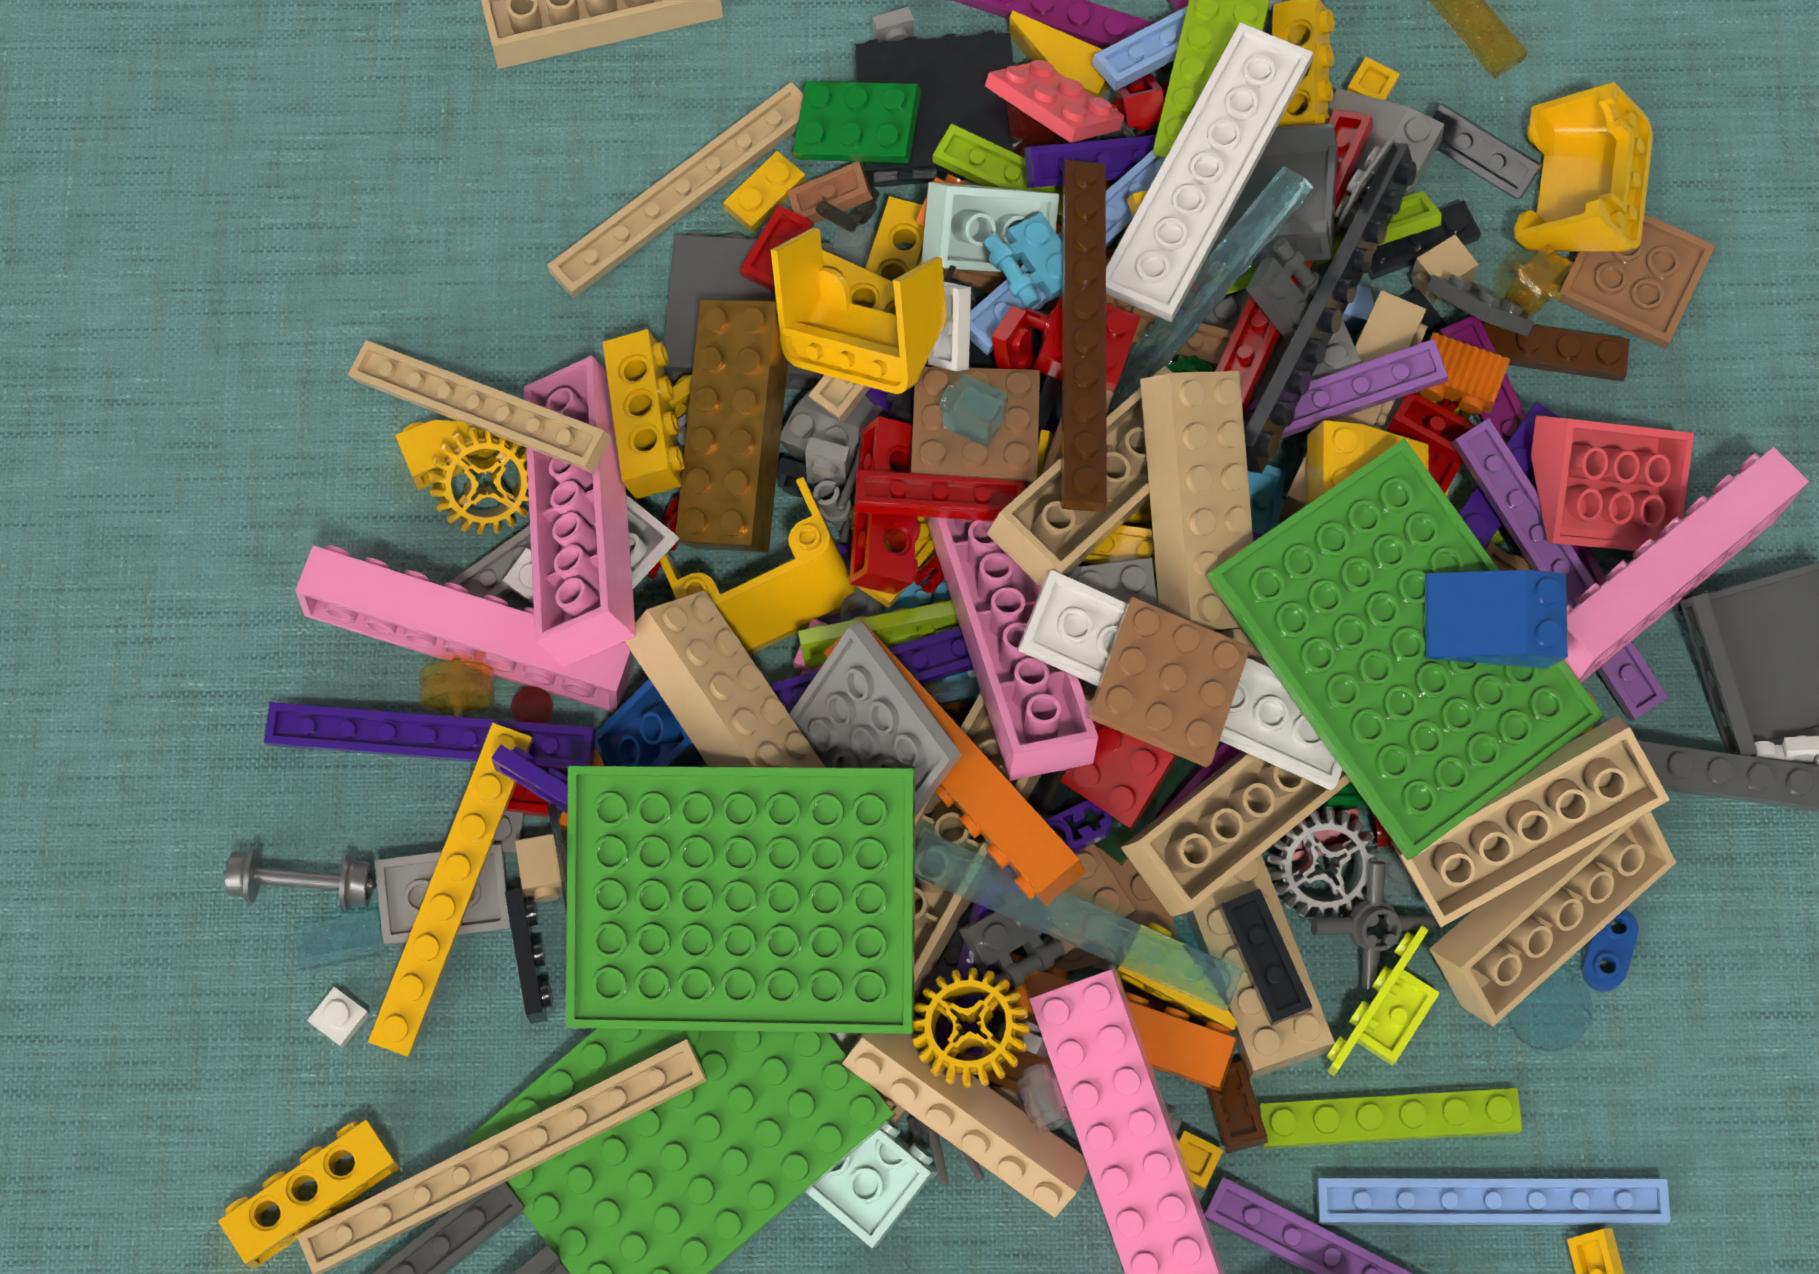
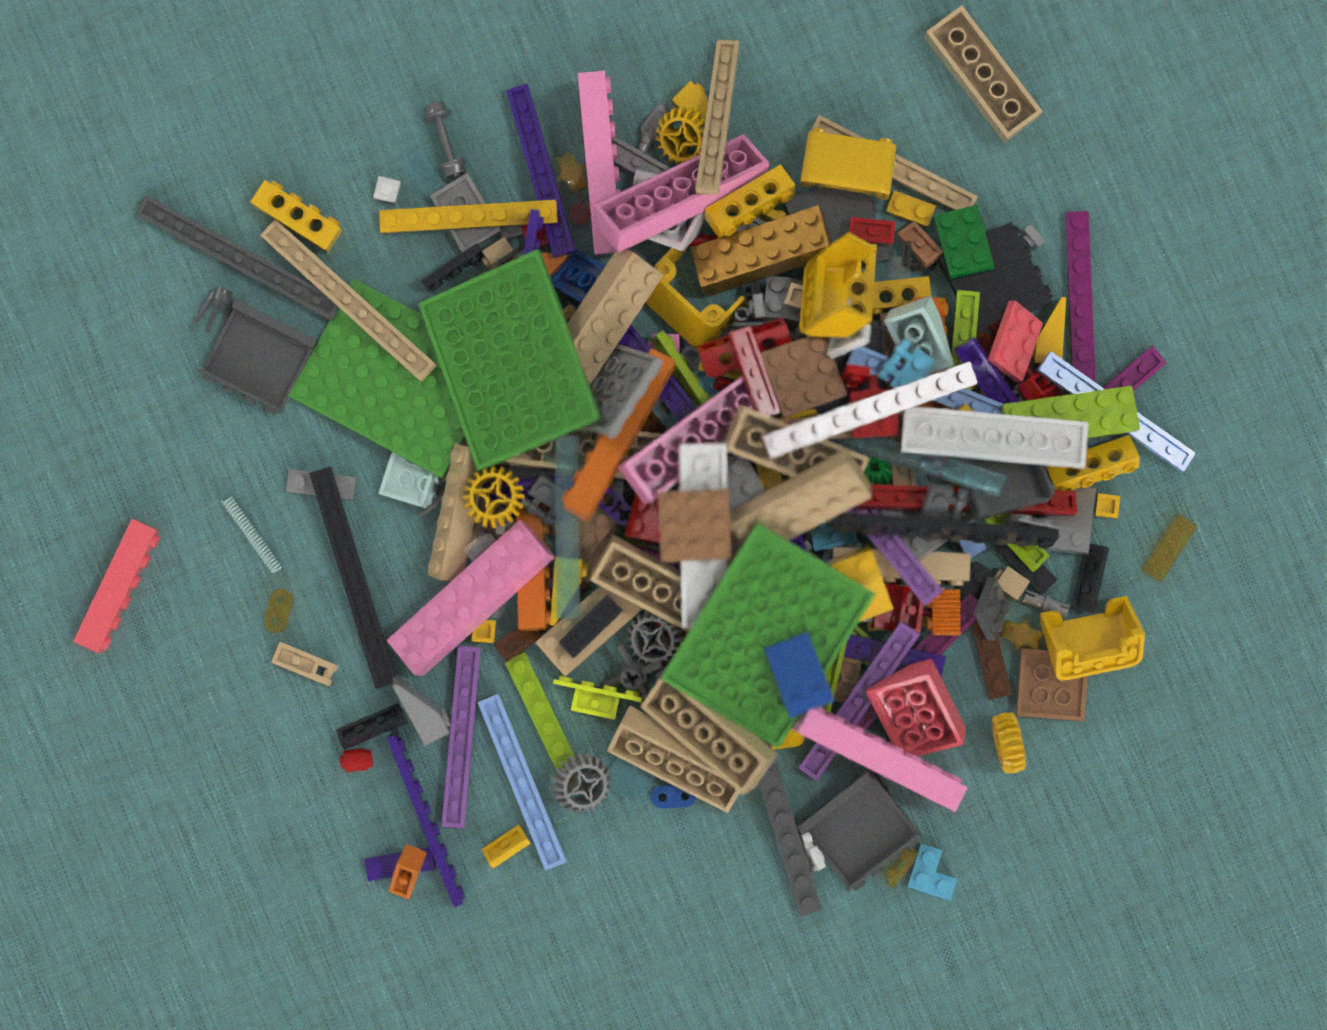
camera: 65 degrees right, 15 degrees up
(440, 535) = (649, 126): none -> light grey piece
(649, 243) = (848, 163): none -> yellow windscreen
(974, 409) = (804, 371): clear light blue brick -> none
(1497, 231) = (1045, 603): none -> light grey pin
(1543, 1084) = (565, 787): none -> light grey gear
(1714, 366) = (1008, 742): none -> yellow gear

